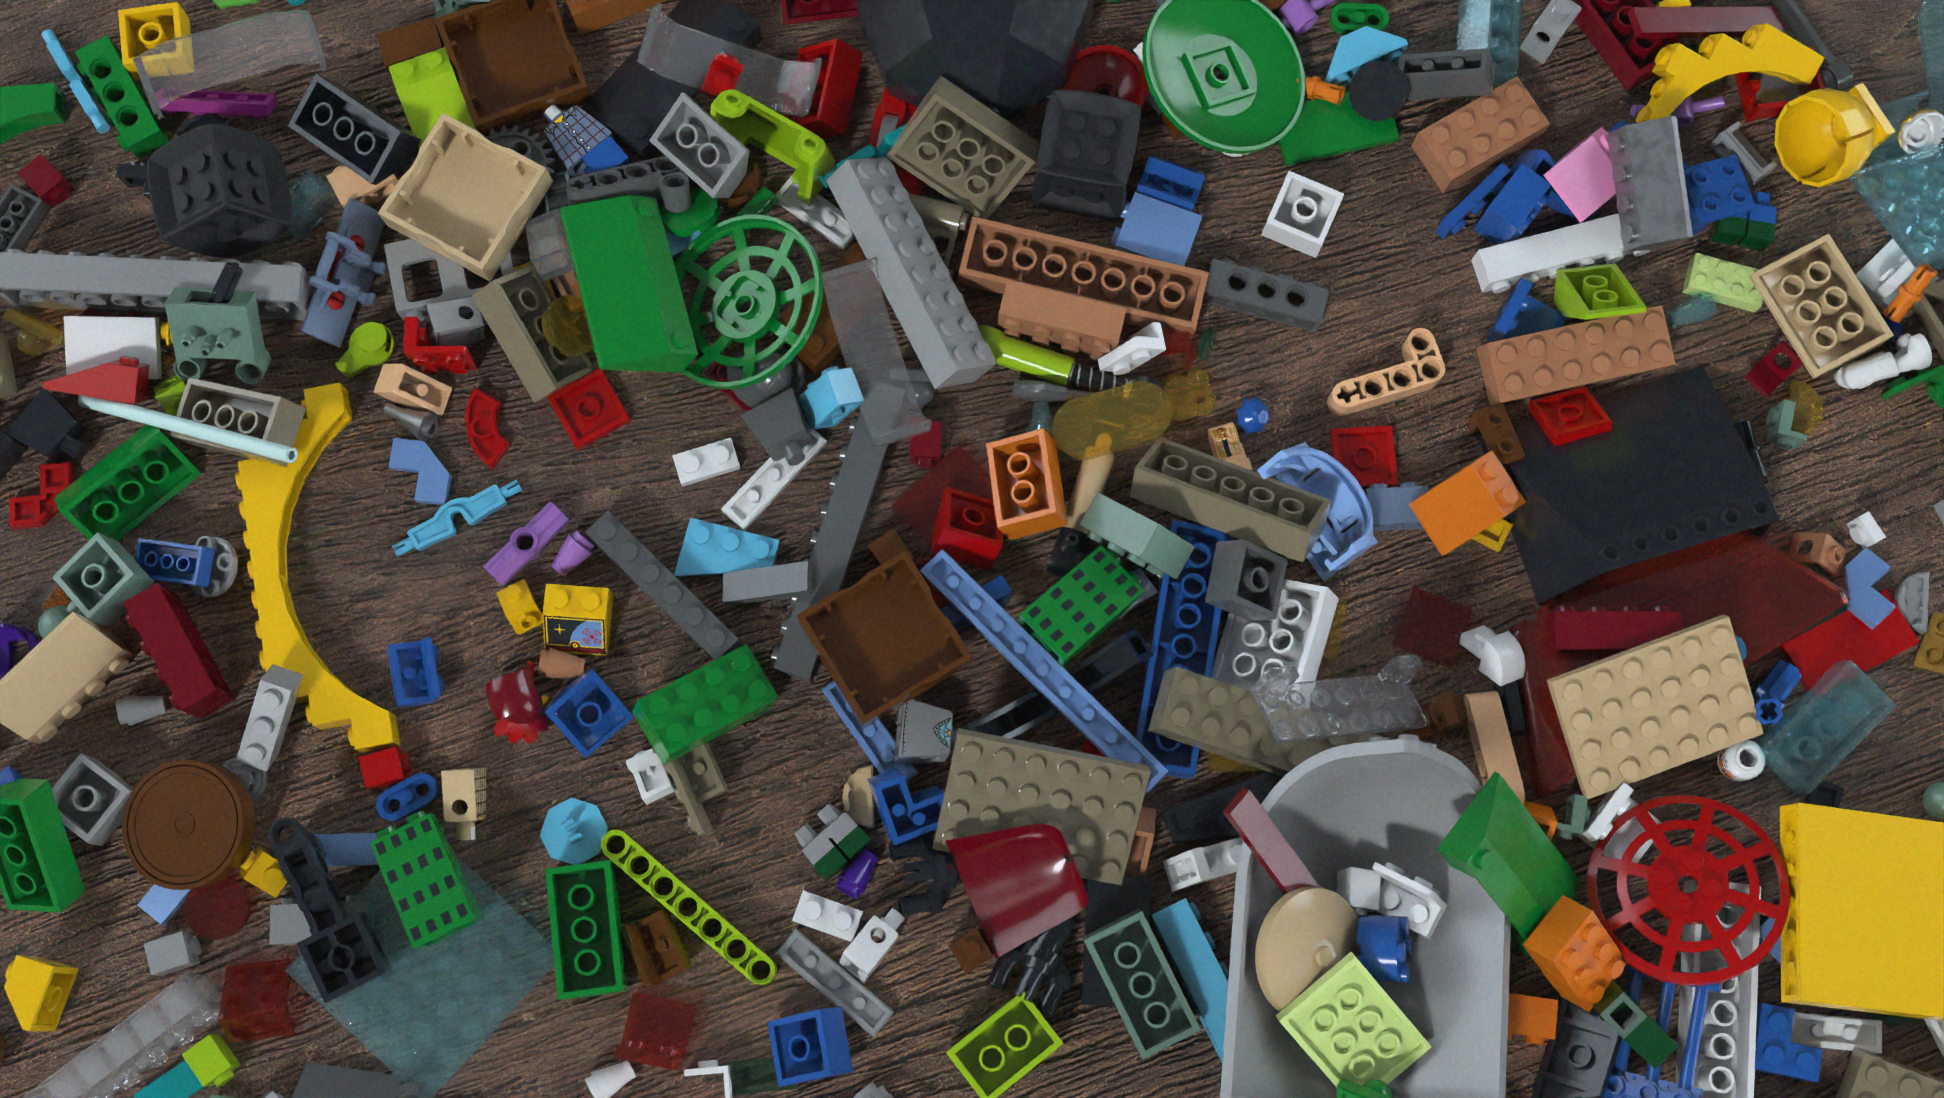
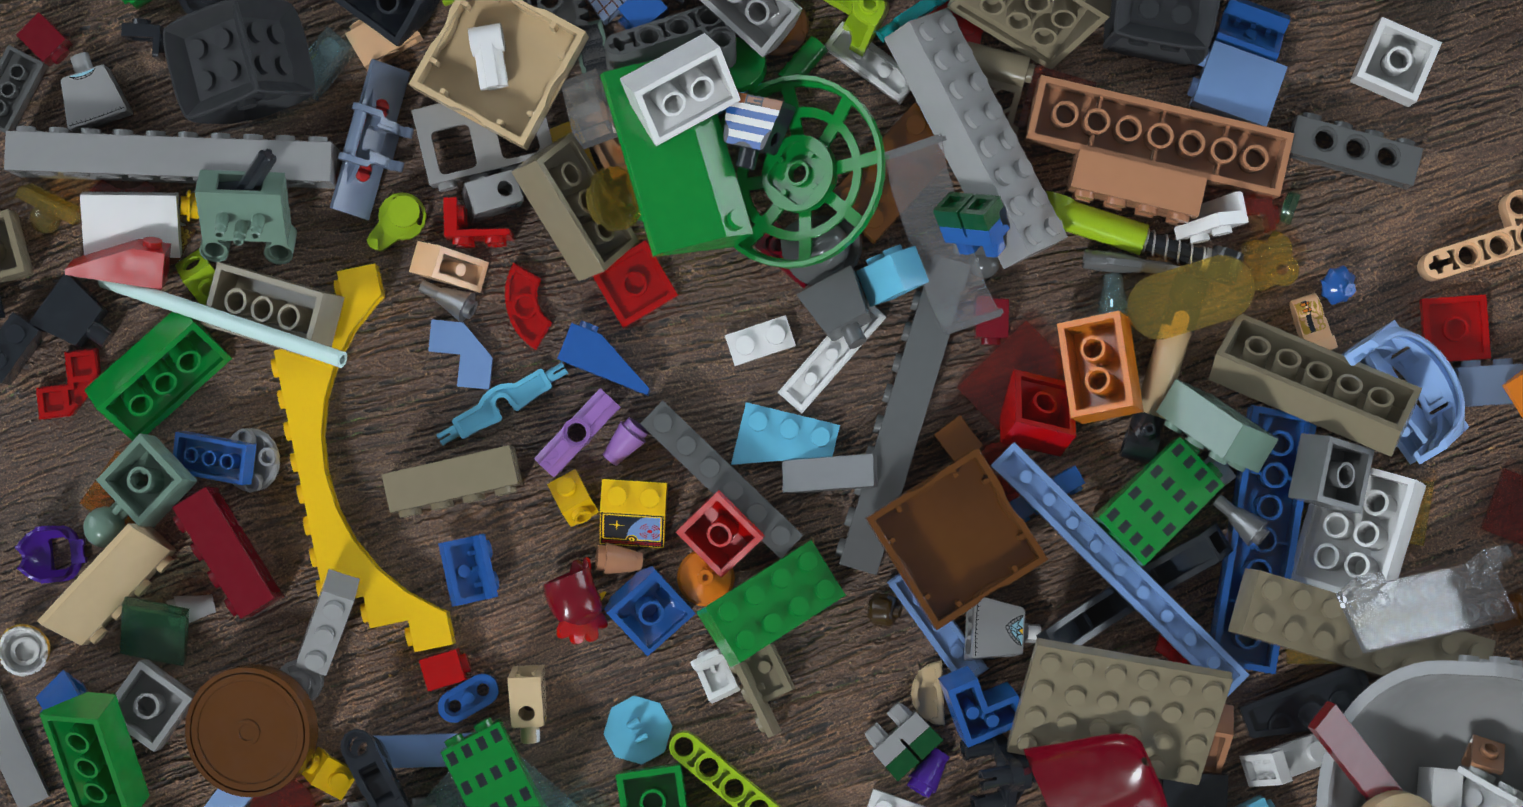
camera: 10 degrees right, 10 degrees up
(87, 228) = (92, 95): none -> light grey torso
(101, 727) = (154, 631): none -> clear green tile
(402, 584) = (452, 479): none -> dark tan brick
(456, 186) = (487, 47): none -> white piece
(544, 470) = (594, 354): none -> blue slope
(633, 220) = (681, 88): none -> white slope
(643, 678) = (700, 582): none -> orange piece
(658, 636) = (720, 533): none -> red slope
(705, 259) = (756, 127): none -> torso
(818, 717) = (883, 609): none -> dark brown piece
(903, 340) = (972, 222): none -> hips
(1168, 631) = (1248, 525): none -> flat silver cone
(1401, 853) = (1485, 755): none -> nougat bracket

